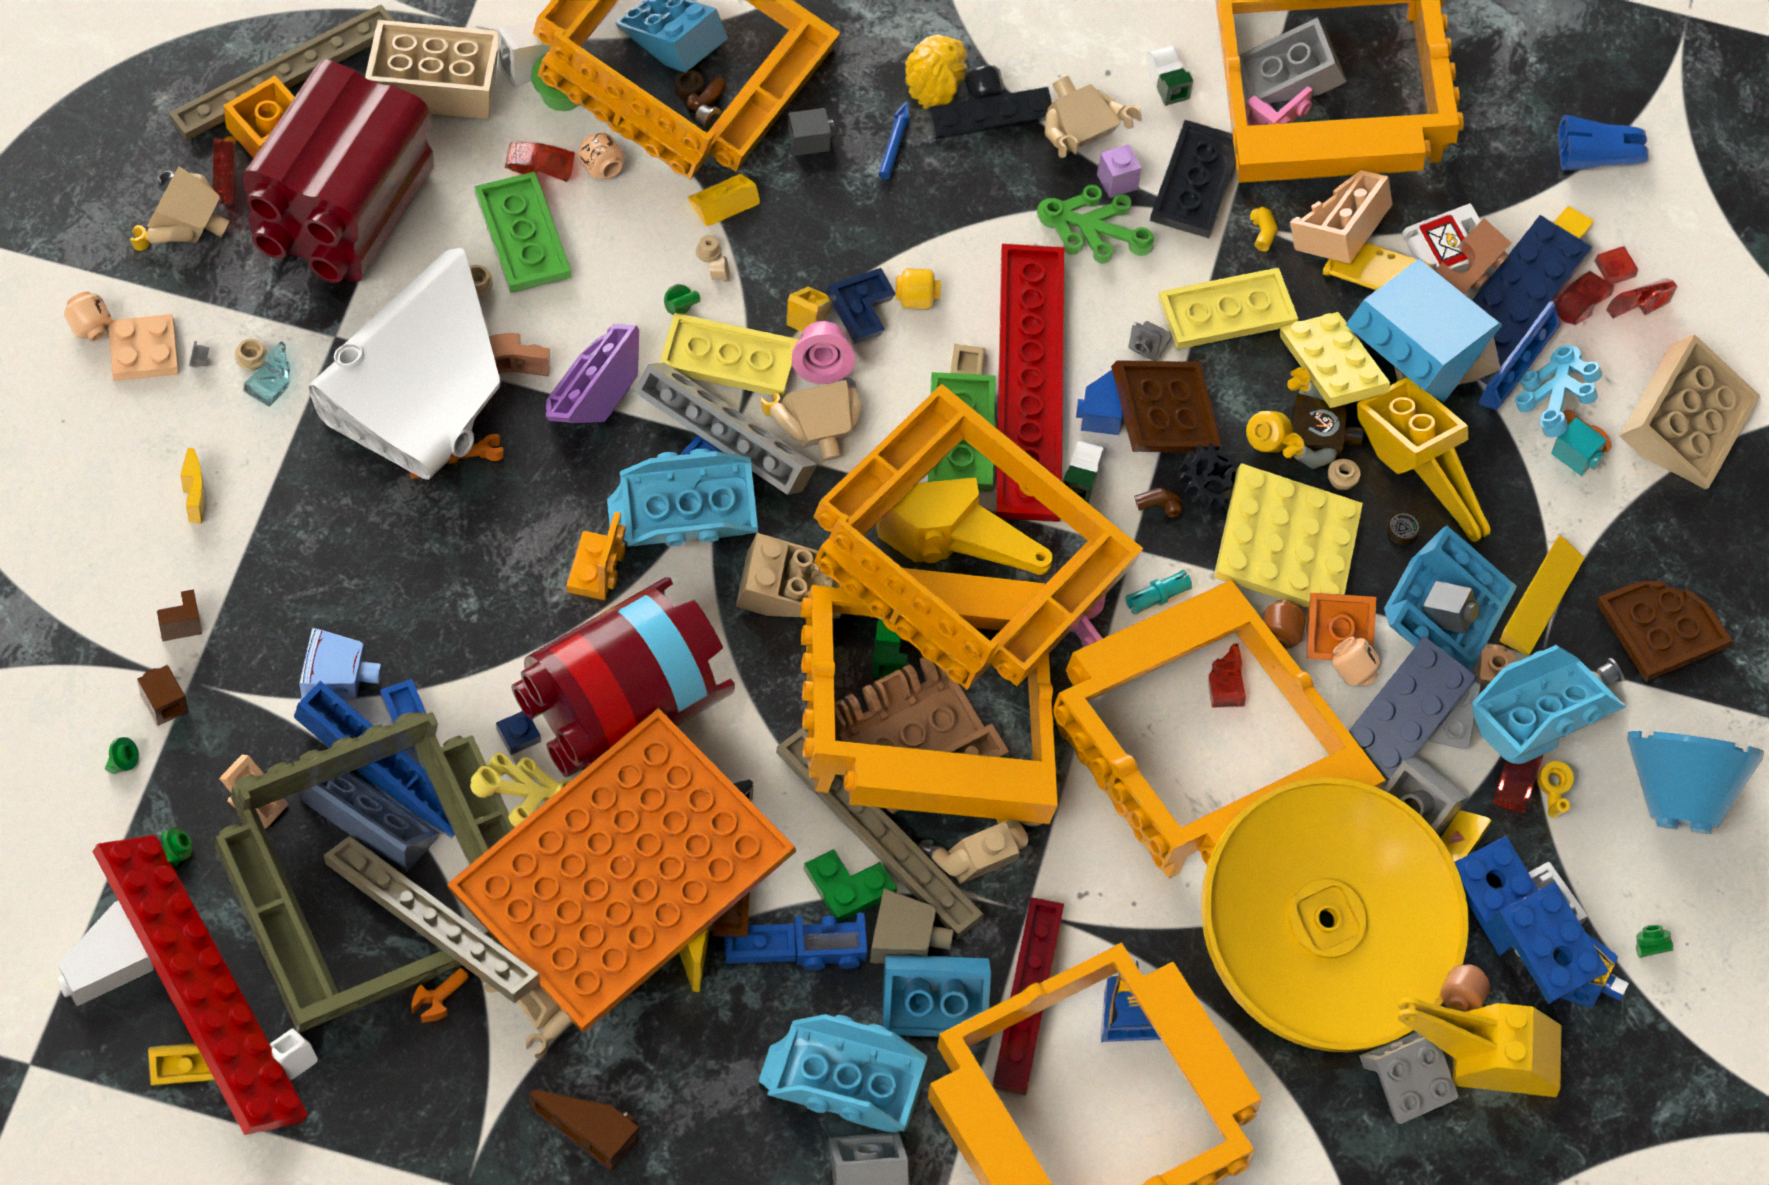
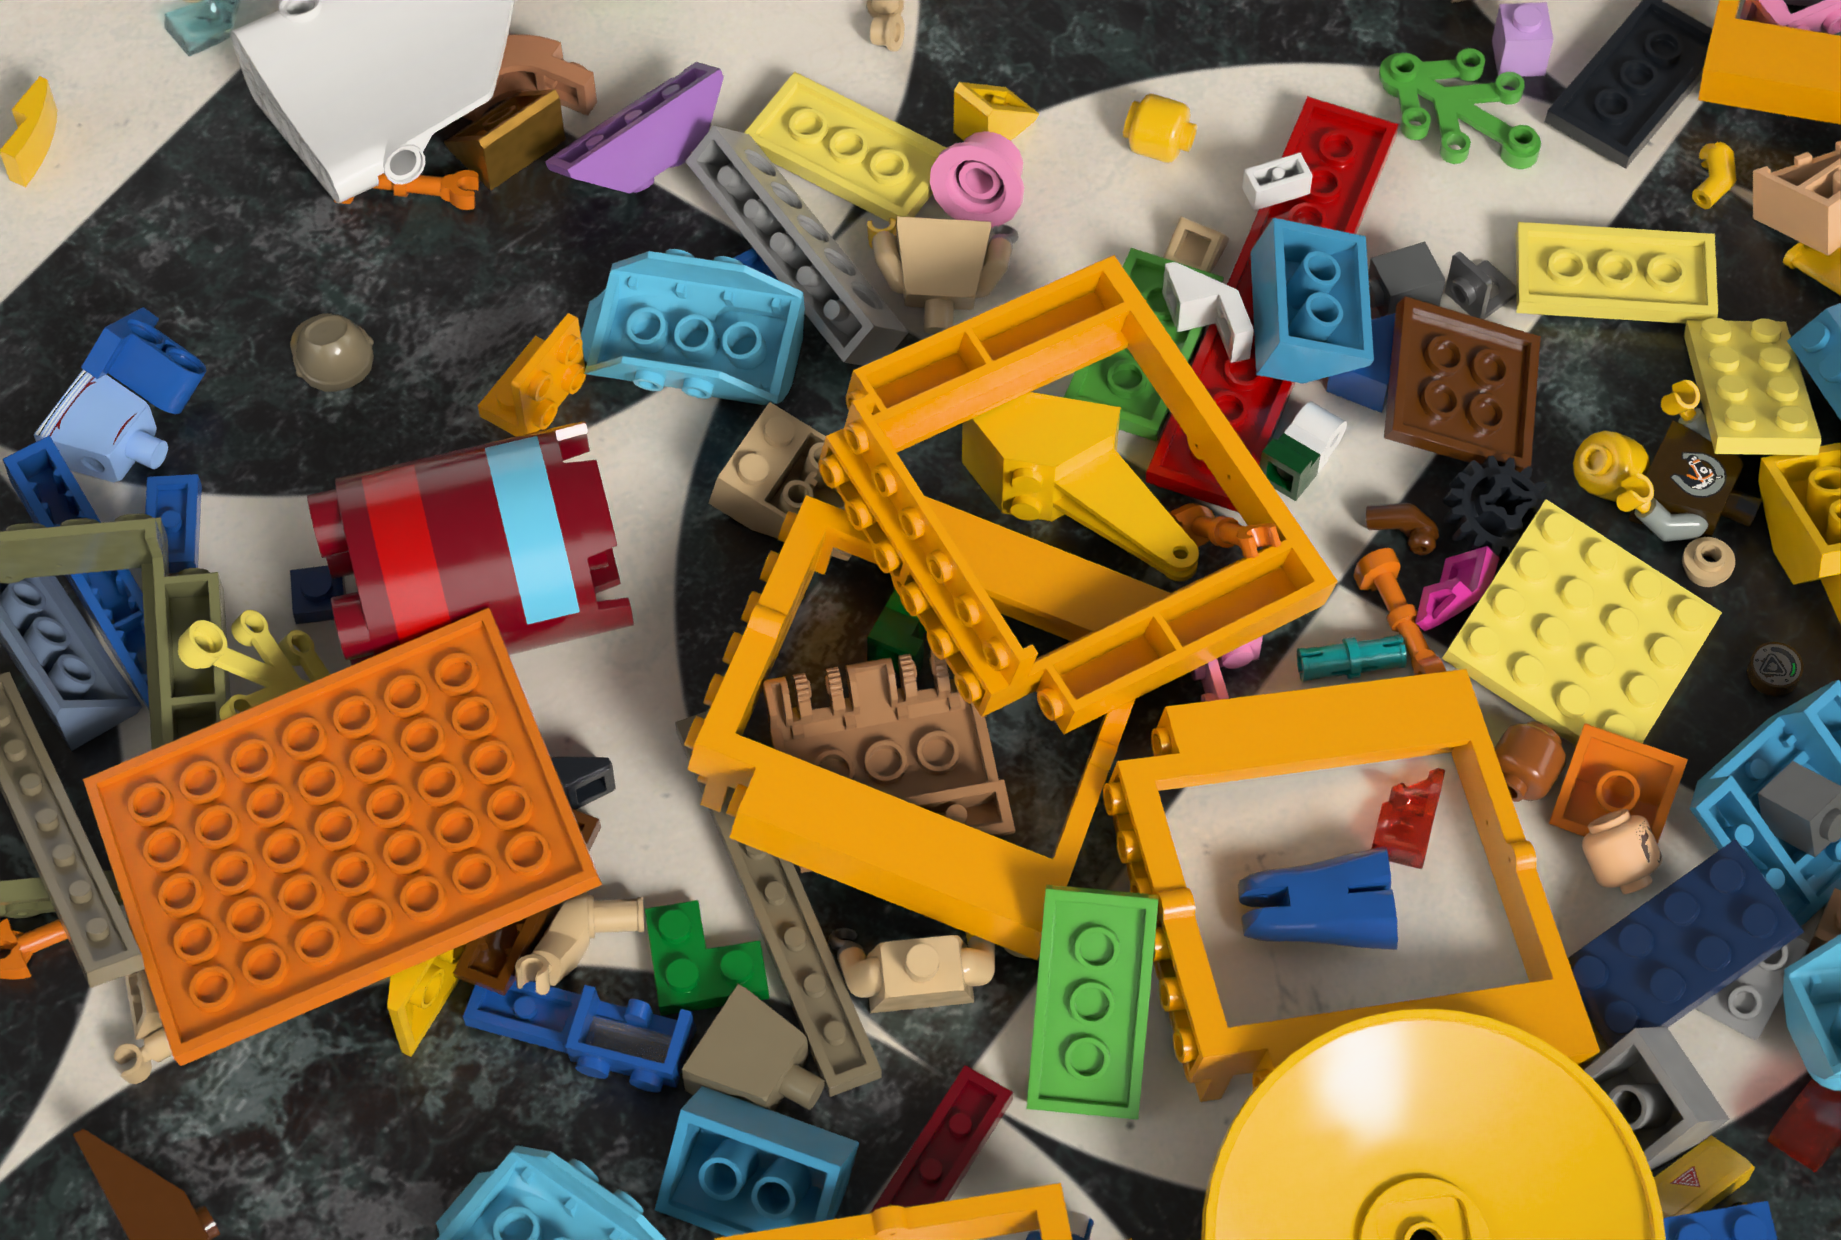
camera: 25 degrees right, 0 degrees up
(349, 616) = (146, 361): none -> blue tile
(454, 576) = (331, 352): none -> dark tan hat
(510, 403) = (510, 136): none -> pearl gold slope
(680, 299) = (812, 56): green plate -> none
(767, 892) = (570, 936): none -> tan arm
(854, 303) = (1060, 118): dark blue plate -> none
(989, 395) = (1202, 301): none -> white slope
(1006, 305) = (1277, 181): none -> white piece
(1058, 379) = (1310, 302): none -> dark azure slope
(1063, 536) = (1224, 531): none -> orange piece
(1094, 837) = (1092, 1001): none -> bright green plate
(1104, 348) = (1404, 273): none -> dark grey brick
(1157, 534) = (1379, 572): none -> orange piece
(1199, 741) = (1324, 902): none -> blue piece
(1208, 529) = (1461, 585): none -> dark pink slope

